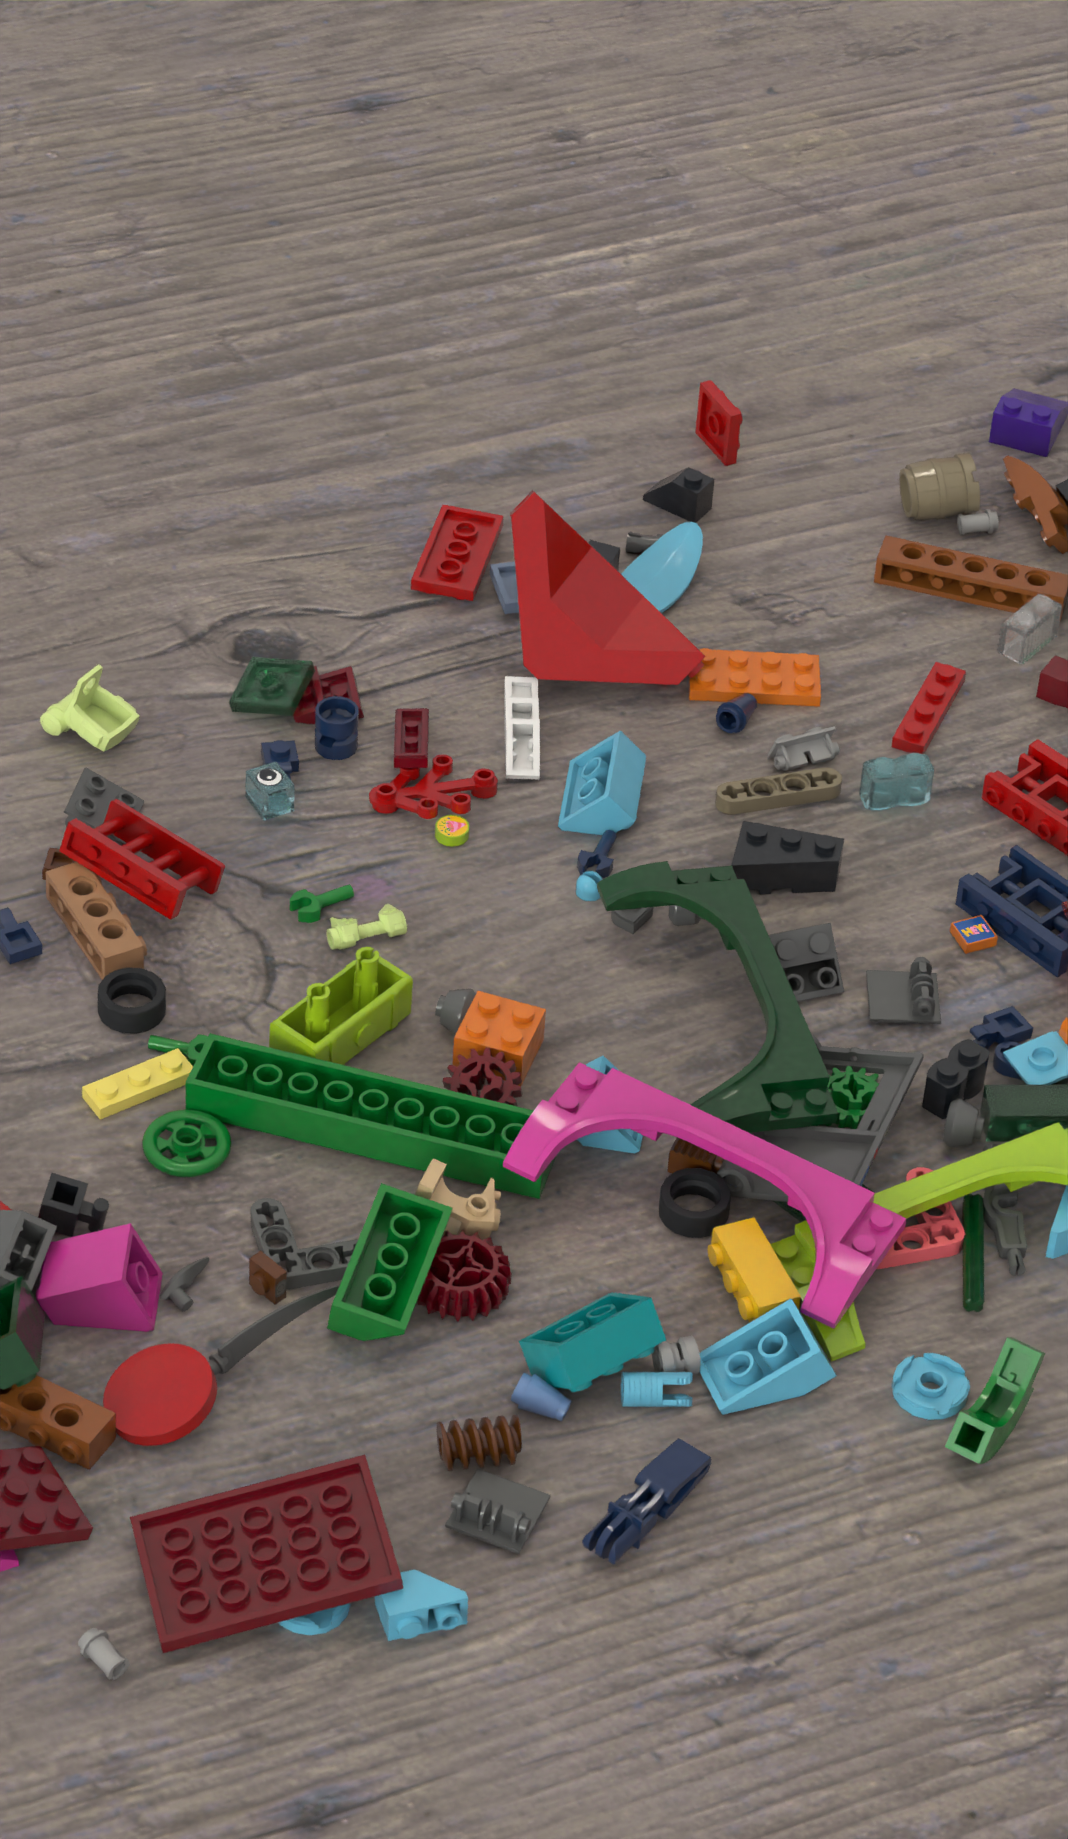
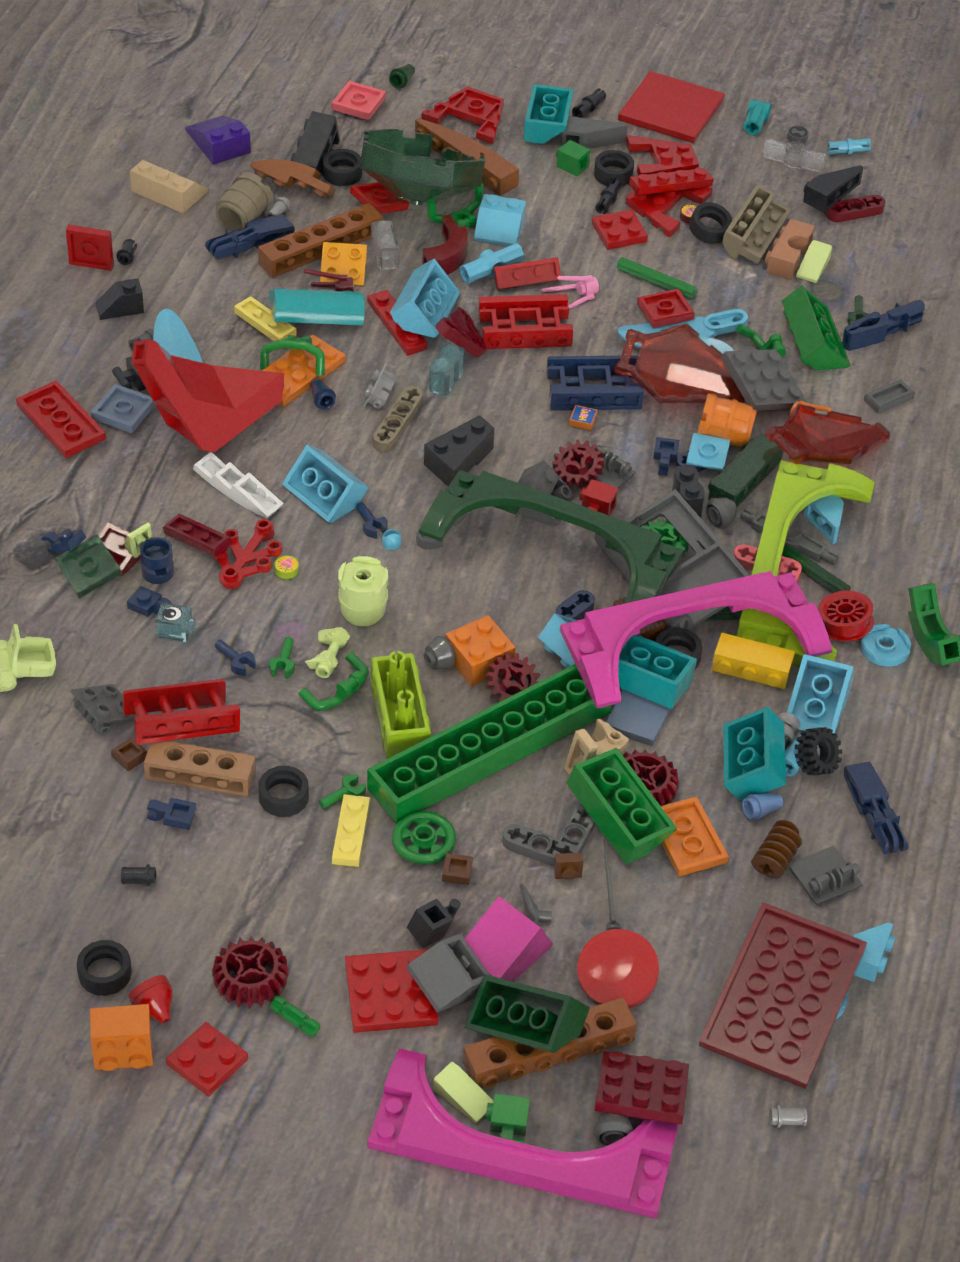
camera: 50 degrees left, 5 degrees up
(170, 1192) = (457, 869): none -> reddish brown plate
(280, 867) = (237, 659): none -> dark blue bar
(284, 647) = (64, 541): none -> dark blue plate
(321, 966) = (345, 689): none -> green piece
(338, 684) = (136, 538): none -> yellowish green slope
(424, 1360) = (695, 841): none -> orange plate
(463, 894) = (363, 590): none -> yellowish green piece
(559, 1225) = (638, 718): none -> sand blue tile
(624, 1188) = (654, 671): none -> teal brick
(668, 1080) = (572, 605): none -> dark blue beam
(690, 1398) = (828, 751): none -> black tyre
(754, 458) = (125, 254): none -> black pin
(772, 643) = (293, 342): none -> green piece
(792, 610) = (261, 318): none -> light yellow plate
(848, 1011) = (599, 497): none -> red brick
(855, 629) = (317, 306): none -> teal brick
(877, 961) = (578, 463): none -> dark red gear
(899, 424) = (165, 186): none -> tan slope
(915, 526) = (256, 234): none -> dark blue arm
(922, 633) = (342, 283): none -> dark red plant
(924, 1319) = (846, 615): none -> red wheel
(959, 616) = (344, 260): none -> light orange hinge
(969, 780) = (462, 332): none -> dark red beam
(977, 704) = (425, 300): none -> medium azure slope

